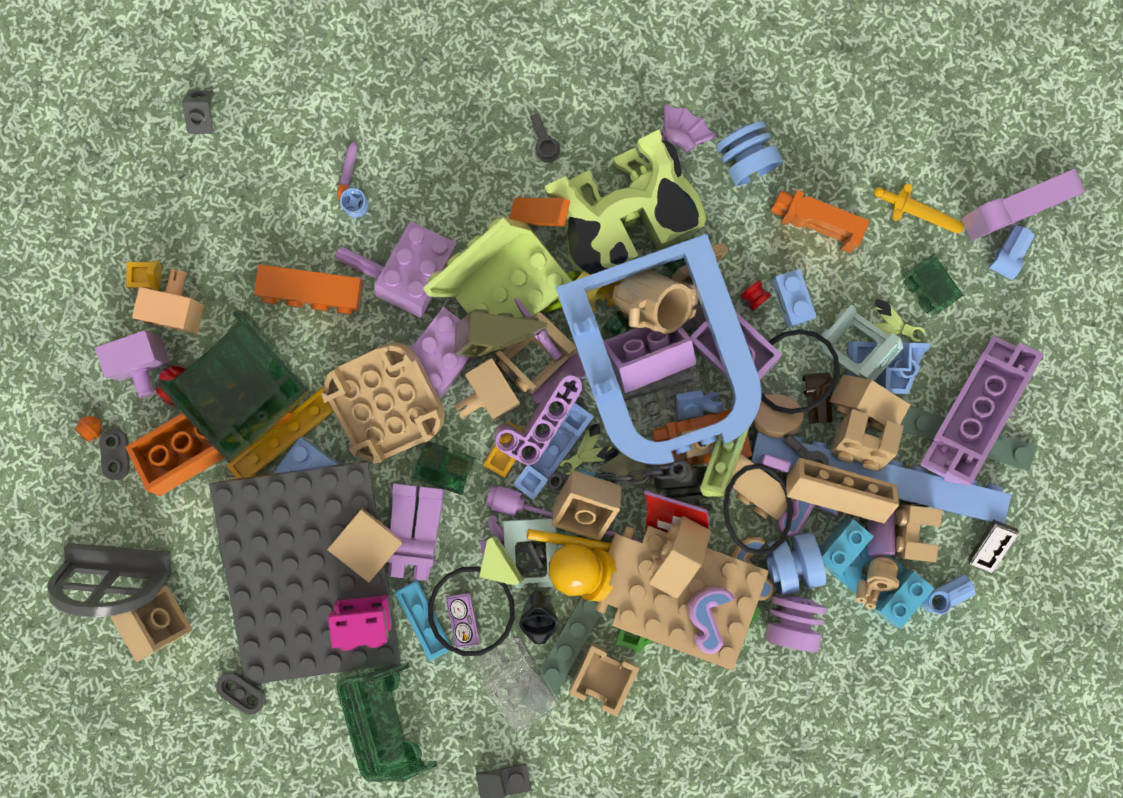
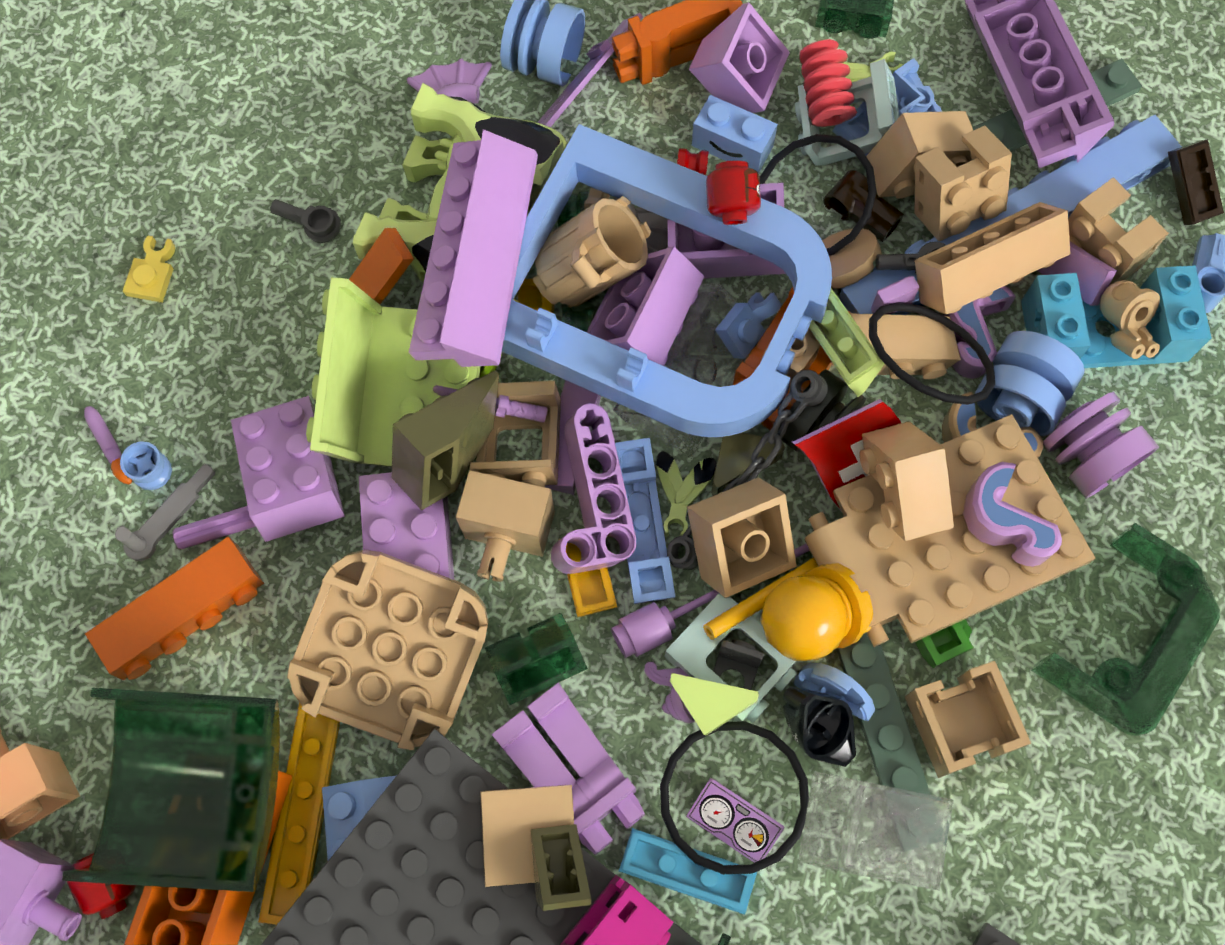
camera: 40 degrees left, 15 degrees down
(321, 238) = (142, 543): none -> light grey piece
(362, 574) = (559, 868): none -> olive slope
(441, 97) = (150, 276): none -> light yellow plate
(562, 610) = (836, 683): none -> light blue tile
(592, 254) = (475, 252): none -> lavender slope
(694, 745) = (1140, 695): none -> clear green windscreen
(738, 347) = (733, 192): none -> red head
(754, 191) = (598, 56): none -> lavender piece
(834, 265) = (741, 60): none -> lavender slope
(863, 320) = (826, 83): none -> coral piece

